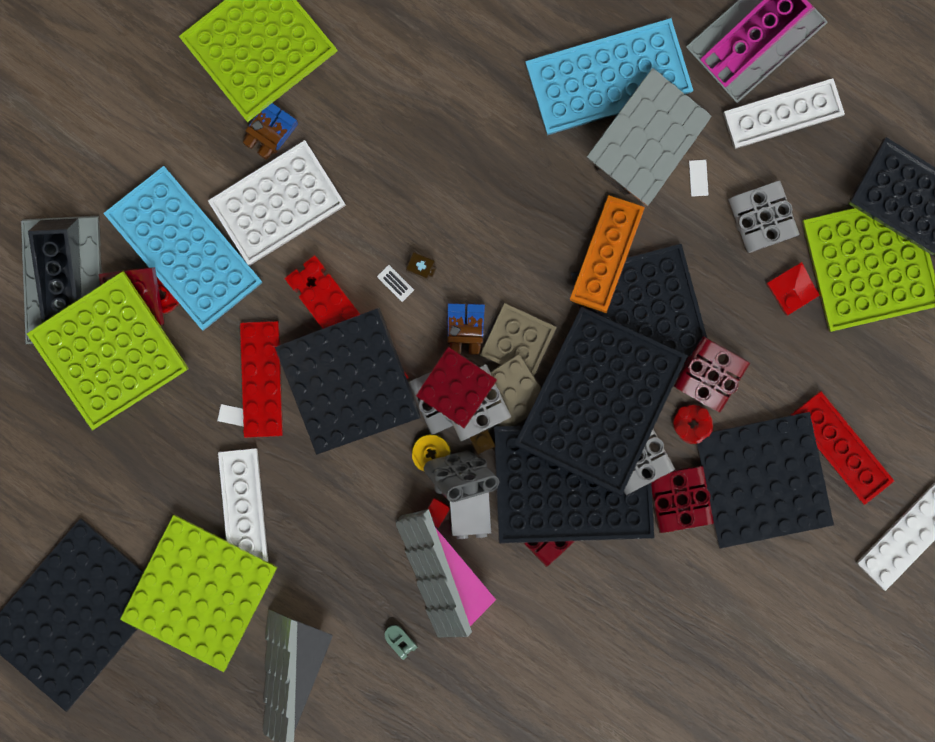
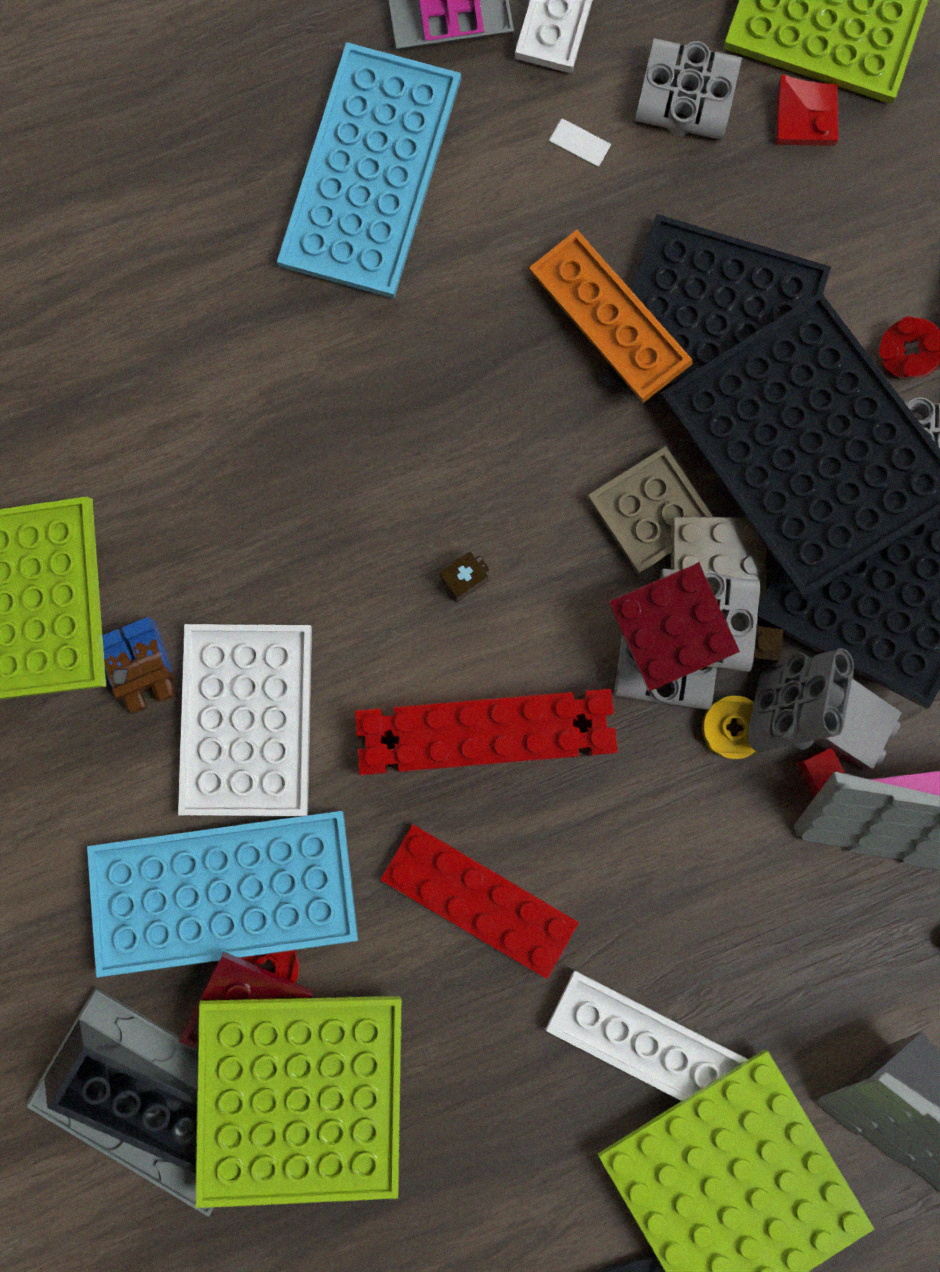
camera: 60 degrees left, 5 degrees down
(231, 415) = (502, 977): white sticker -> none
(348, 381) = (564, 777): black plate -> none
(395, 283) = (463, 627): white sticker -> none
(462, 333) = (587, 568): hips -> none
(648, 138) = (492, 164): light grey piece -> none
(711, 396) = (860, 265): connector -> none

